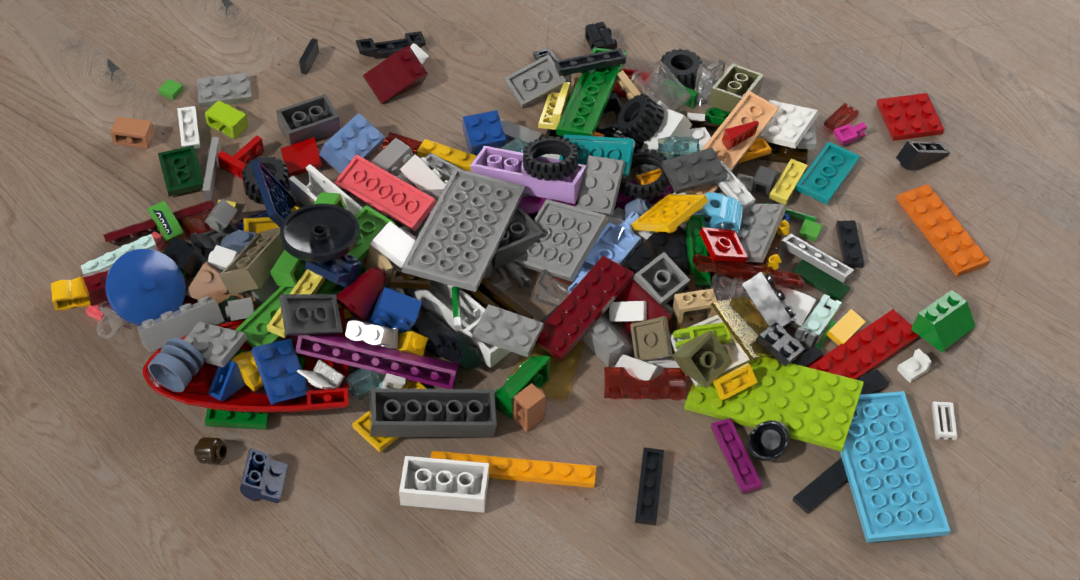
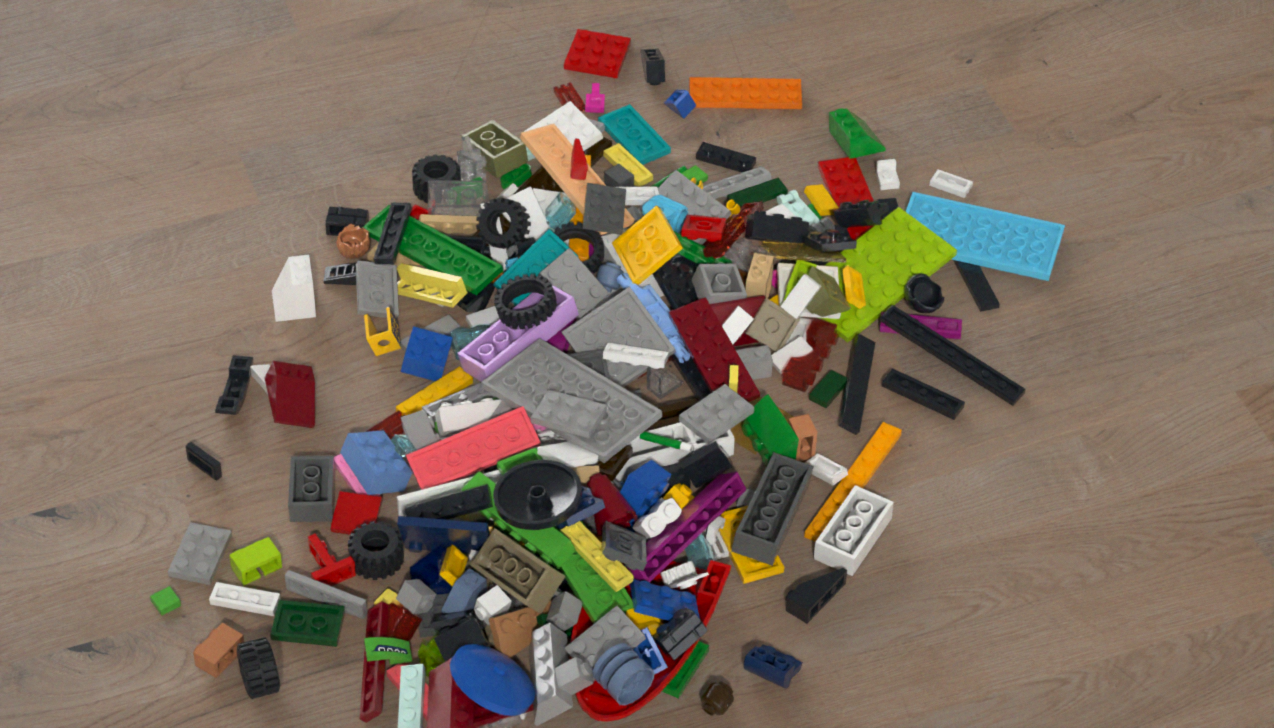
camera: 65 degrees left, 5 degrees down
(112, 154) = (258, 668): none -> black tyre
(165, 332) = (574, 675): none -> light grey brick
(248, 391) = (679, 633): none -> black brick
(299, 190) = (453, 505): none -> black plate
(357, 481) = (814, 594): none -> black slope
(367, 150) = (403, 445): none -> clear light blue plate
(439, 229) = (569, 414): none -> light grey plate
(493, 98) = (391, 335): none -> yellow piece
(503, 37) = (294, 290): none -> white slope
(512, 441) = (827, 469): none -> white tile
(545, 254) = (635, 355): none -> white plate
(553, 327) = (733, 378): none -> light yellow tile
(576, 48) = (353, 242): none -> nougat hair
(615, 412) = (828, 389): none -> dark green tile
(631, 430) = (857, 384): none -> black tile
(678, 338) = (801, 296): none -> white tile
(710, 494) = (952, 355): none -> black tile
(830, 355) = (860, 214): none -> black brick
(887, 188) = (680, 103): none -> blue slope

